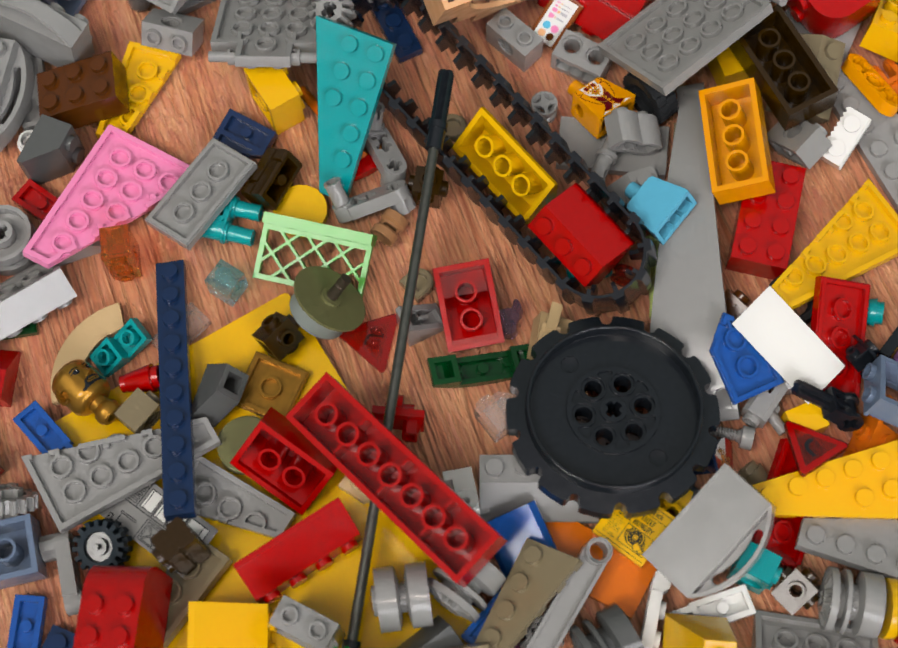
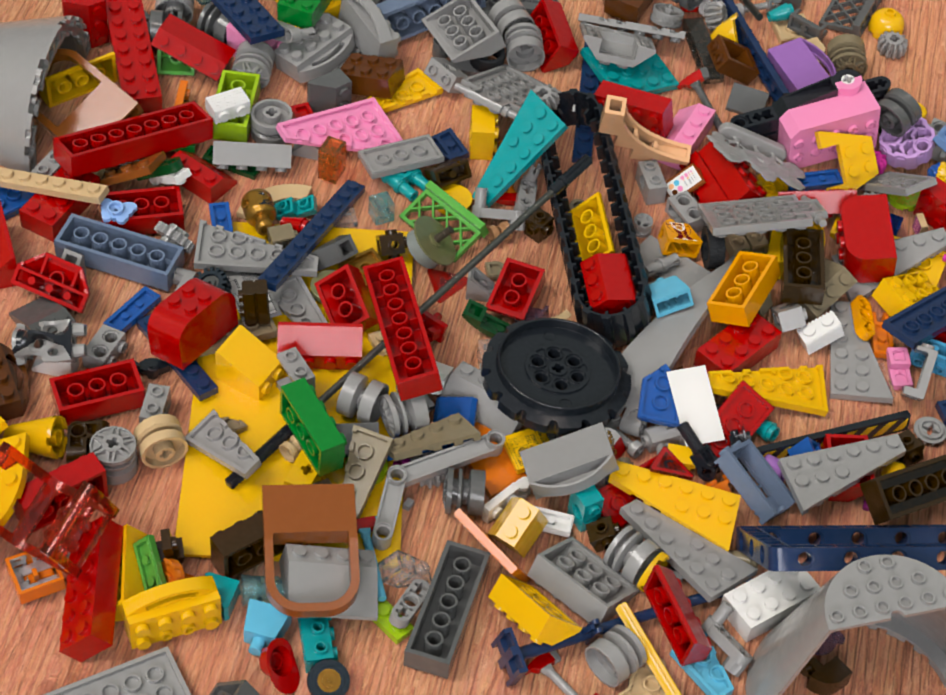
camera: 25 degrees right, 20 degrees down
(633, 131) = (685, 258): light grey brick -> none

